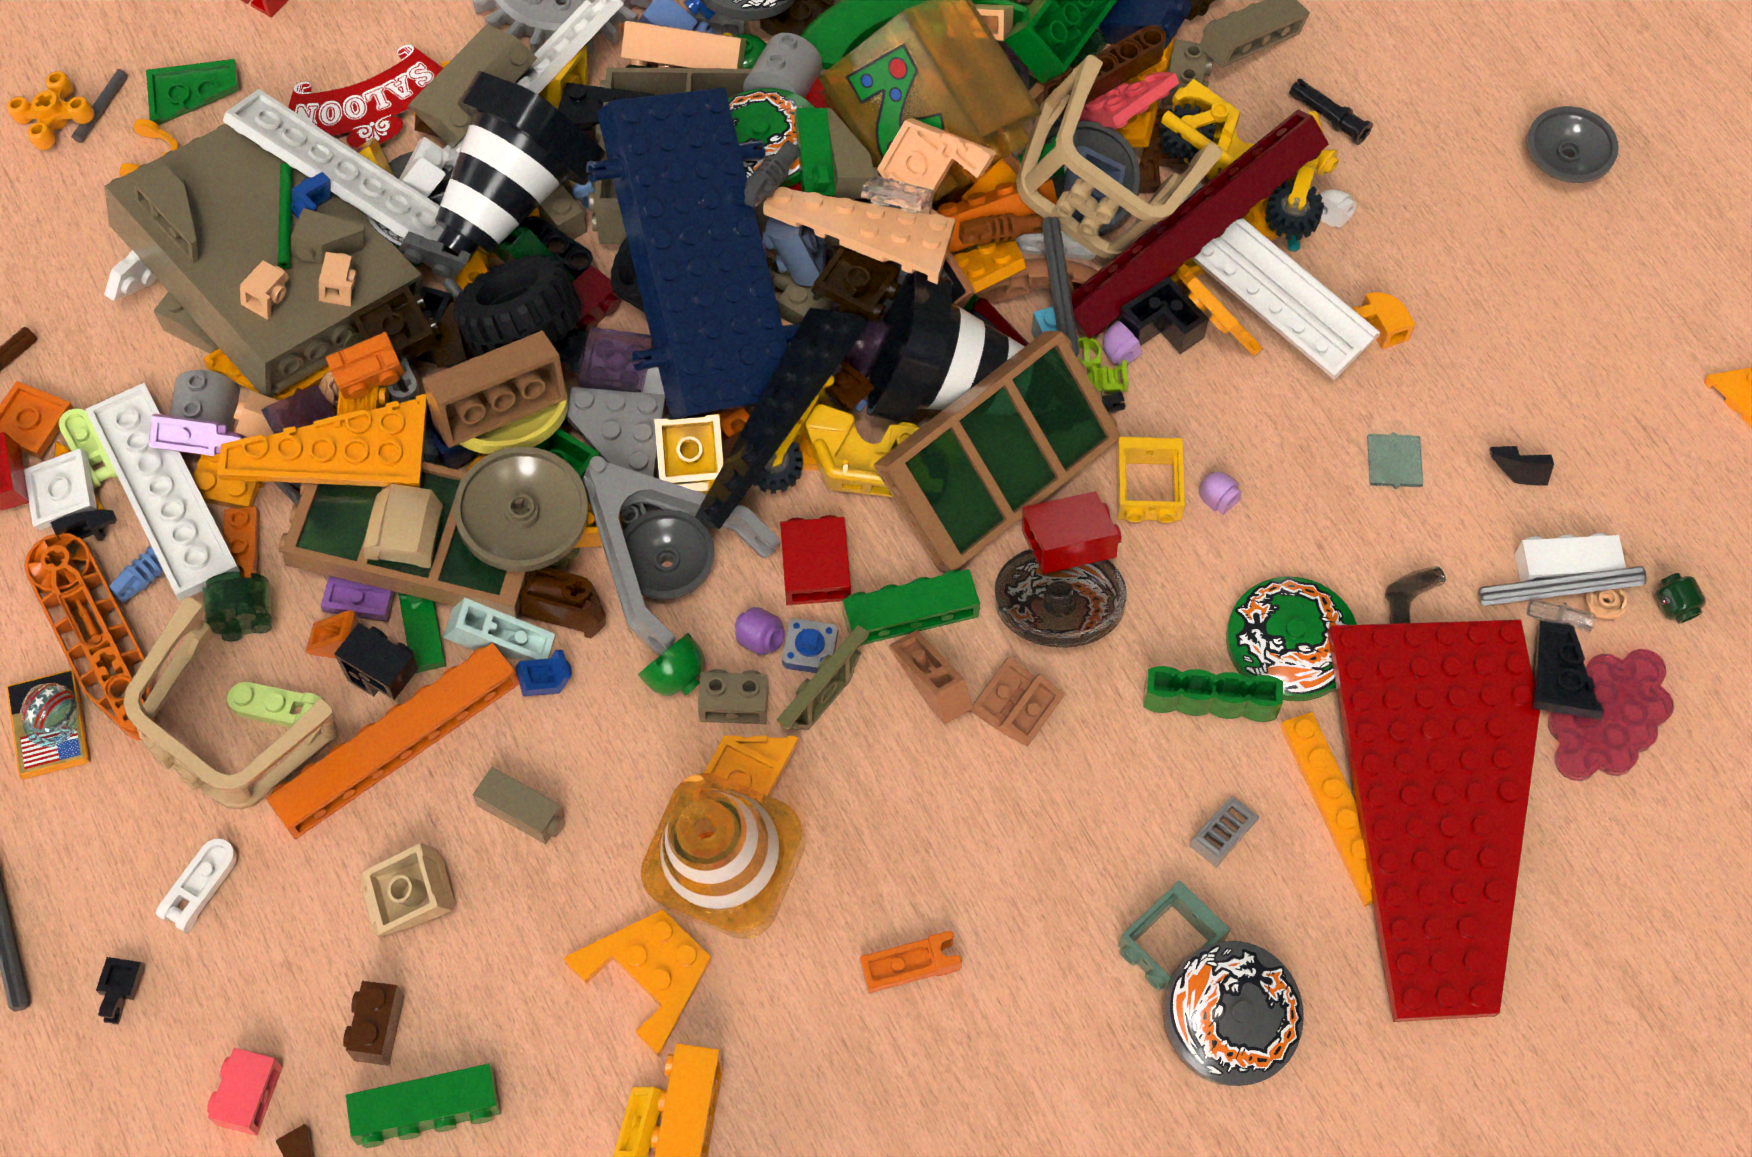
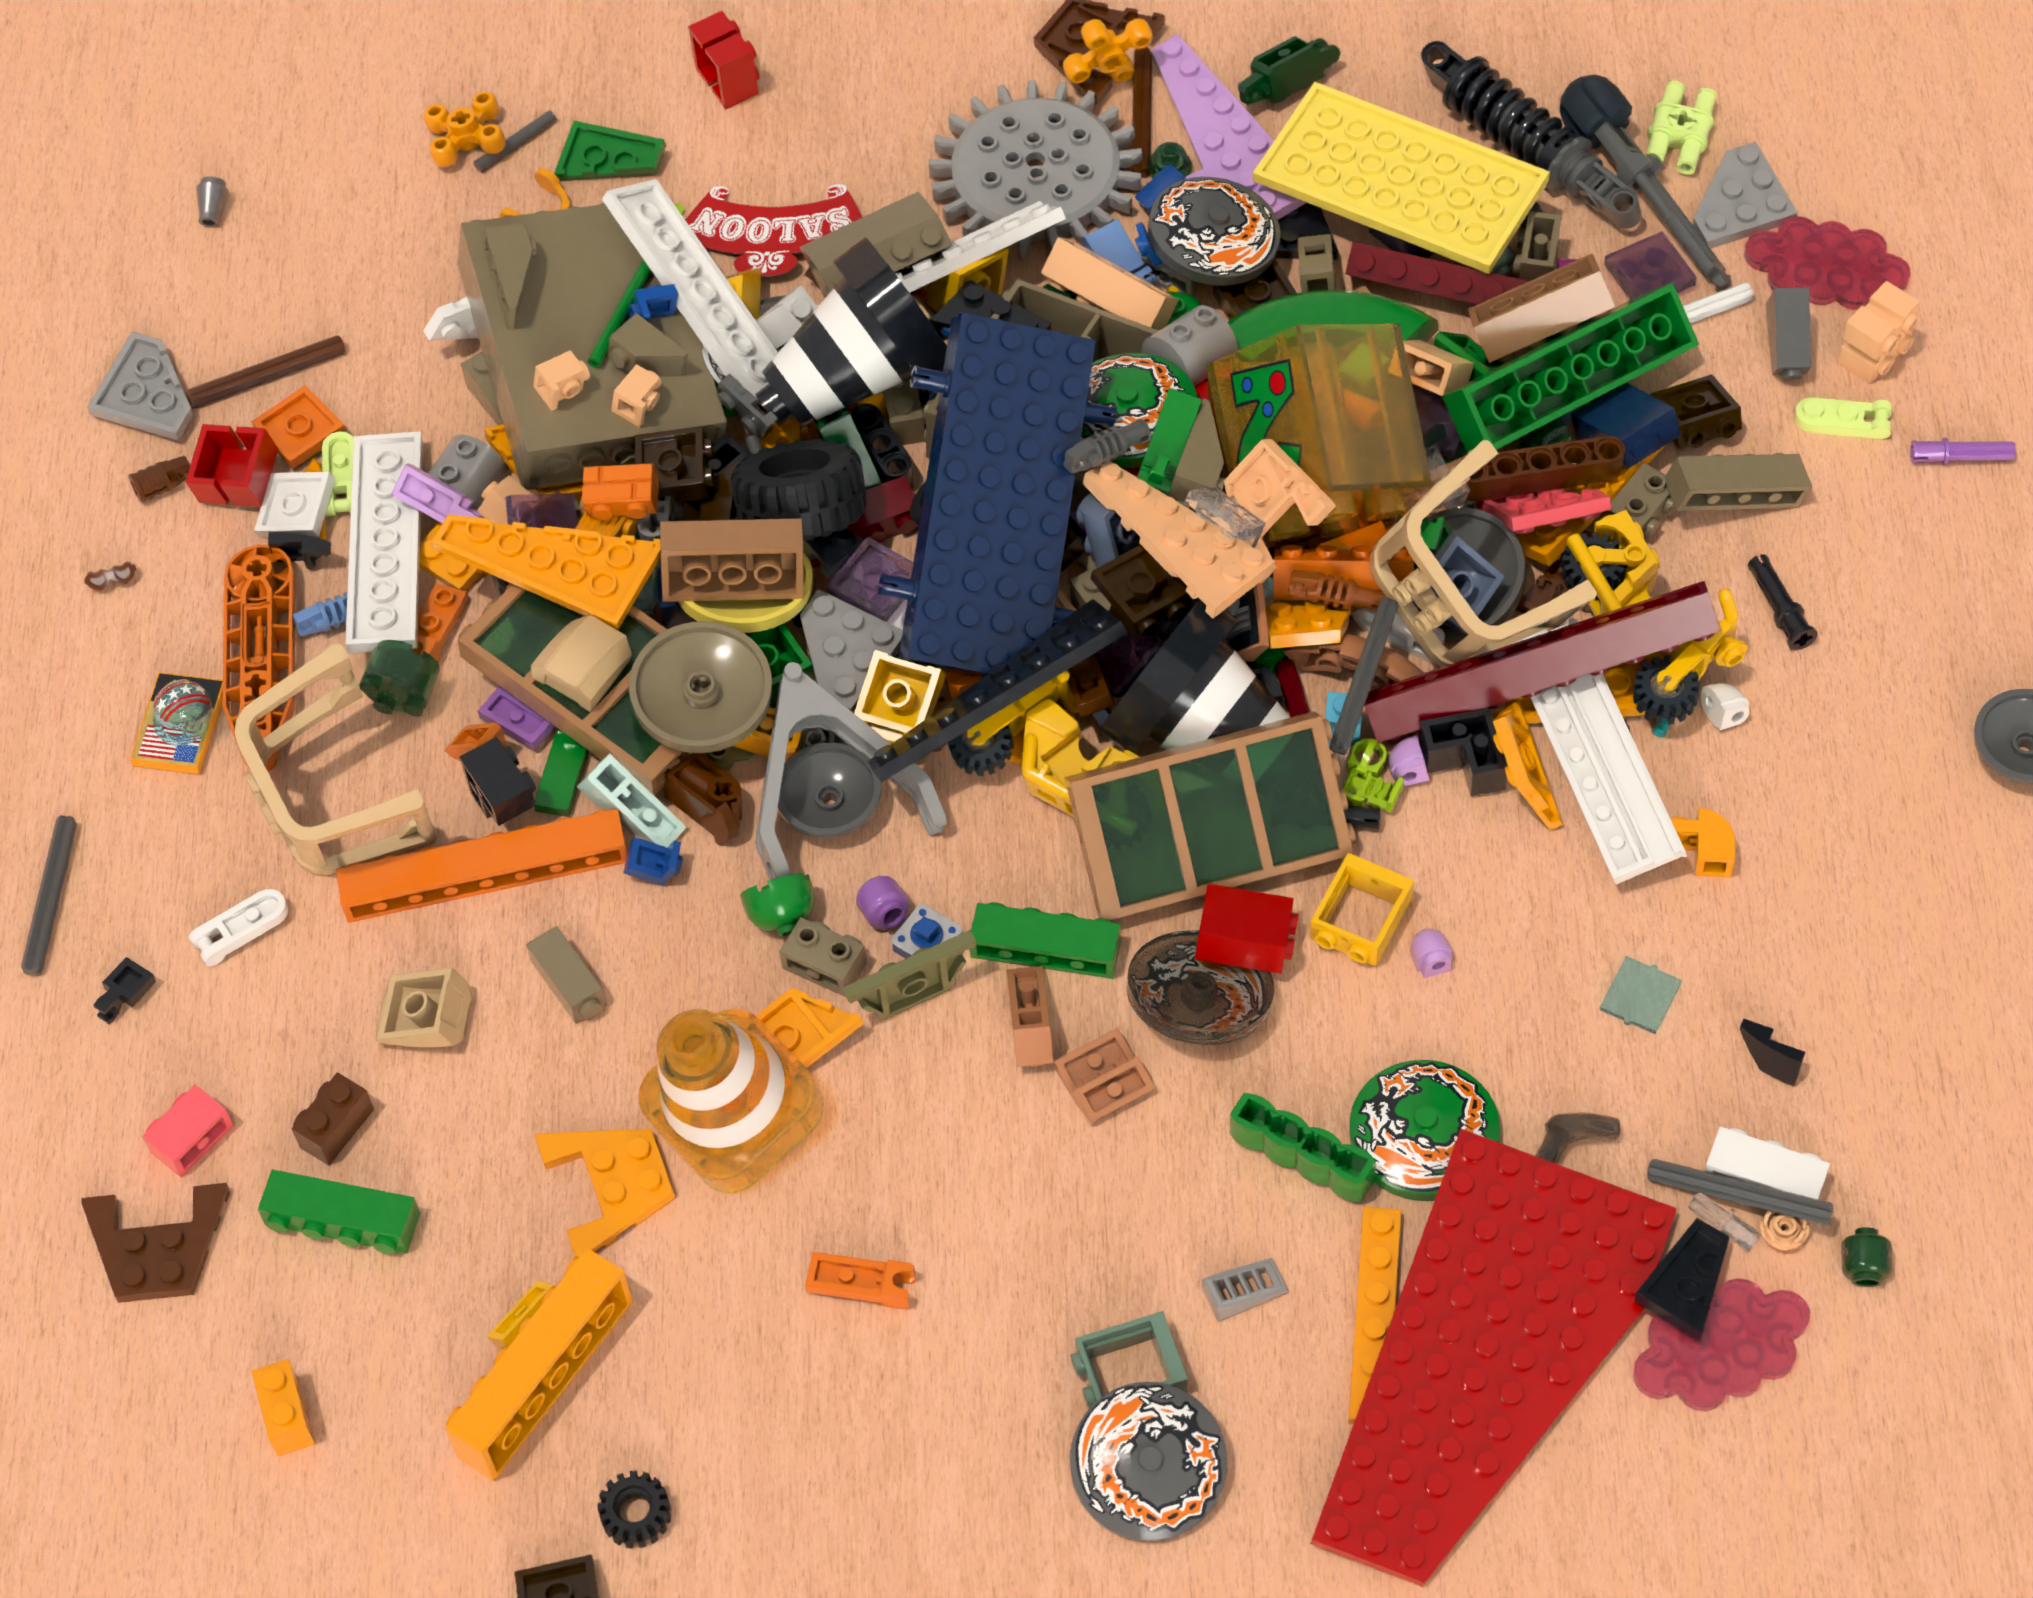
camera: 30 degrees right, 5 degrees down
(269, 703) = (384, 782): yellowish green plate -> none
(815, 560) = (975, 855): red brick -> none

